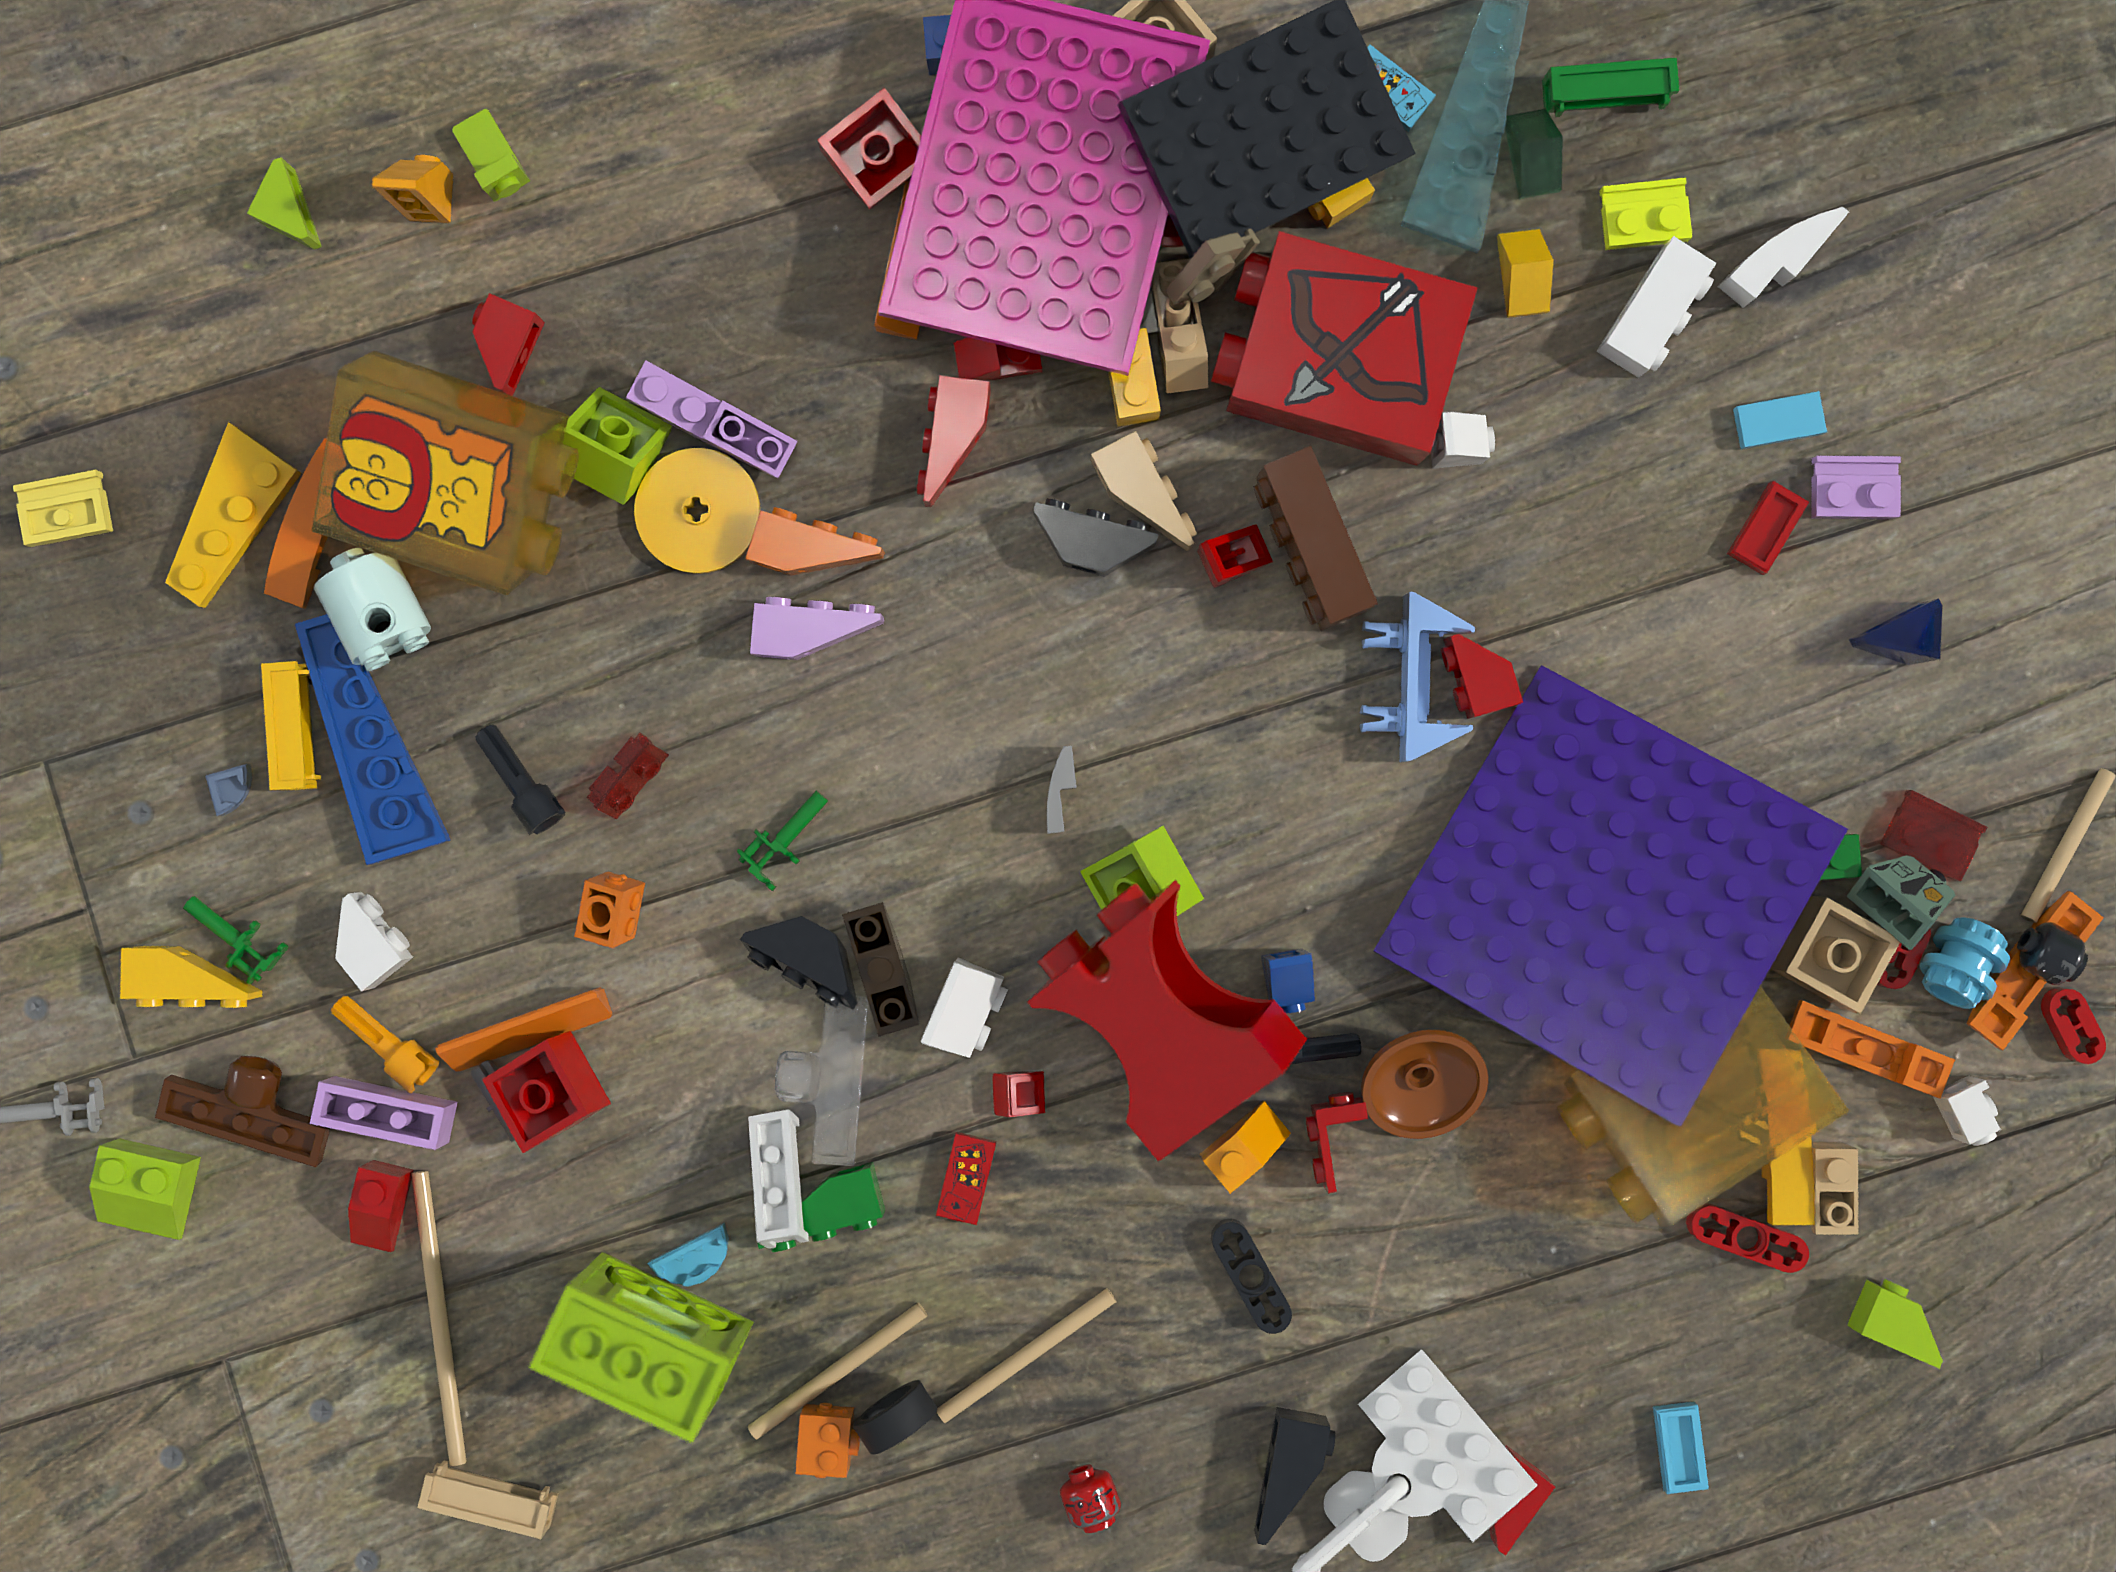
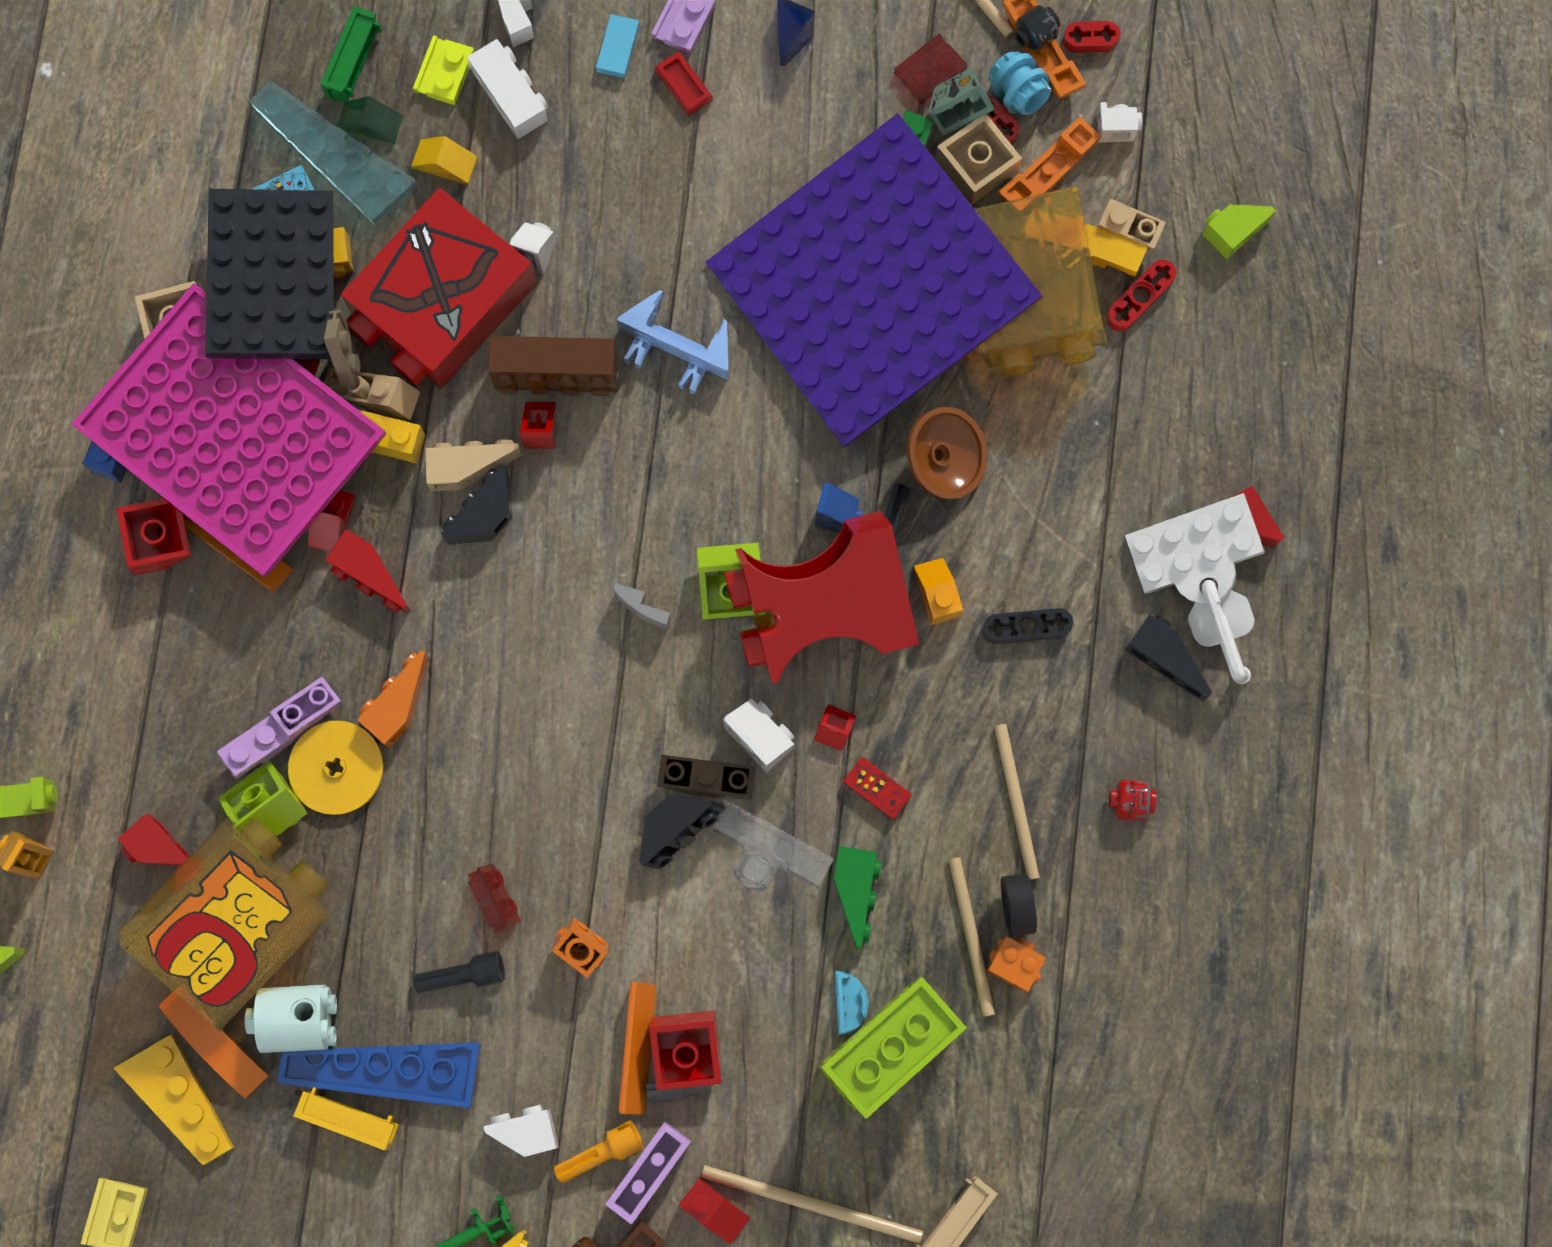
camera: 70 degrees left, 10 degrees down
(229, 788) = (369, 1186): sand blue tile -> none
(776, 1178) = (817, 911): white container -> none
(783, 838) = (588, 809): green piece -> none
(796, 632) = (451, 733): lavender slope -> none
(1339, 1109) = (947, 537): red bracket -> none
(1482, 677) = (695, 301): red slope -> none
(1680, 1447) = (1263, 398): medium azure tile -> none

